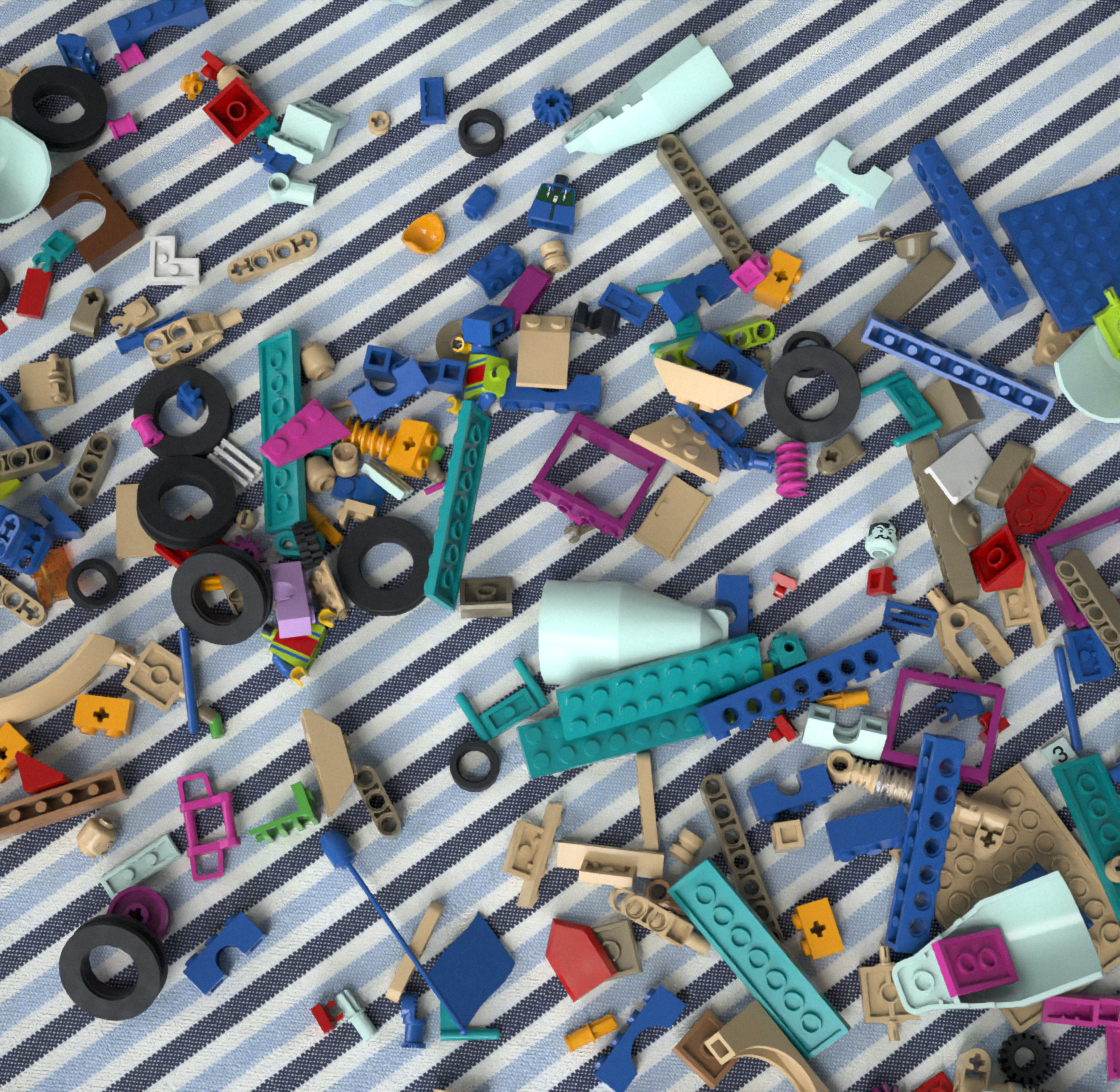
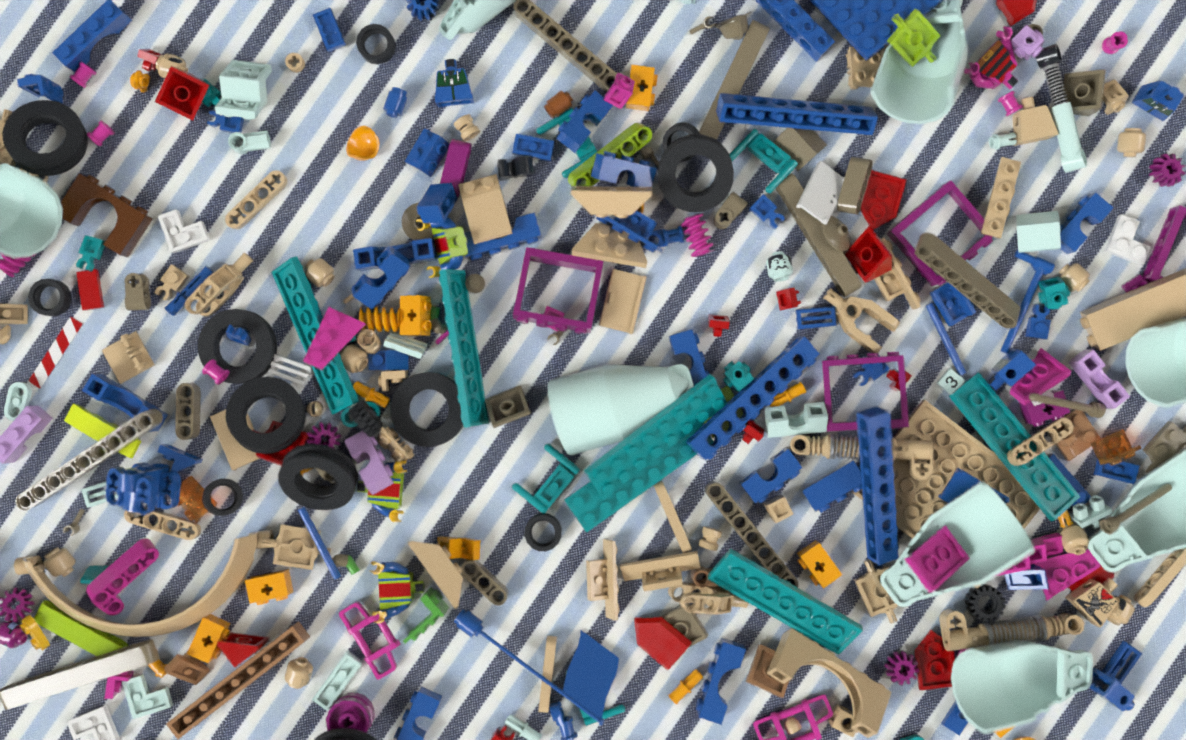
camera: 15 degrees left, 15 degrees up
(261, 771) = (395, 589): none -> torso
(367, 751) = (461, 547): none -> light orange slope
(499, 437) = (475, 283): none -> dark tan plate
(673, 266) = (558, 104): none -> dark orange brick
(885, 467) = (764, 209): none -> blue plate
(1088, 1041) = (1028, 579): none -> slope

